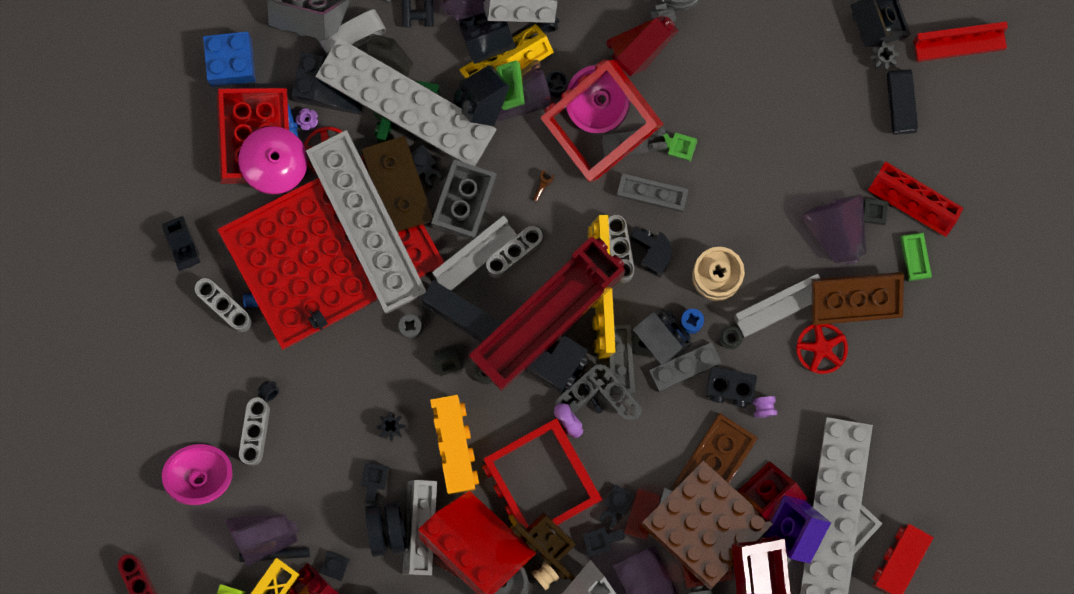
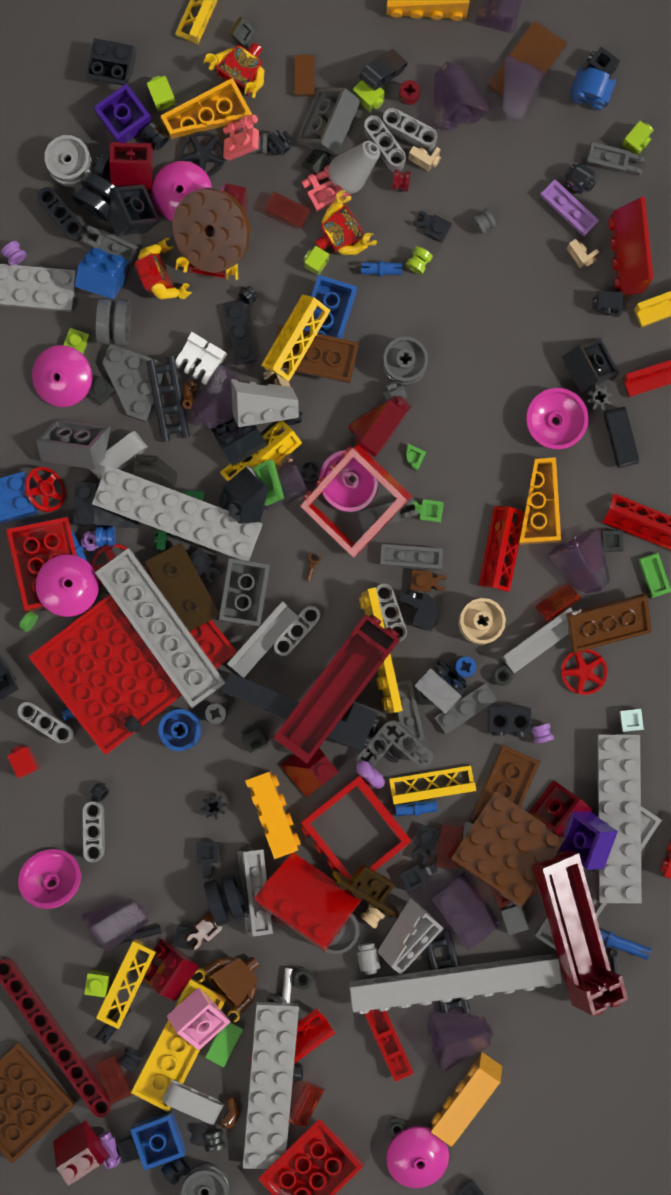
camera: 10 degrees left, 5 degrees up
(191, 343) = (23, 761): none -> red brick
(224, 193) = (28, 621): none -> bright green tile
(267, 54) = (45, 489): none -> red wheel
(323, 116) = (105, 536): none -> blue wheel
(358, 558) = (205, 930): none -> plate
(364, 324) = (170, 736): none -> blue brick
(503, 407) = (312, 774): none -> dark red slope
(613, 465) = (416, 807): none -> blue pin
(634, 452) = (434, 792): none -> yellow fence
(662, 221) = (423, 581): none -> reddish brown plate
(673, 86) = (414, 456): none -> bright green tile
(749, 197) = (498, 547): none -> red fence
(803, 166) = (542, 509): none -> light orange wedge
(804, 268) = (558, 602): none -> clear red plate
(840, 56) = (565, 407): none -> dark pink dish
(865, 409) = (631, 720): none -> light aqua plate

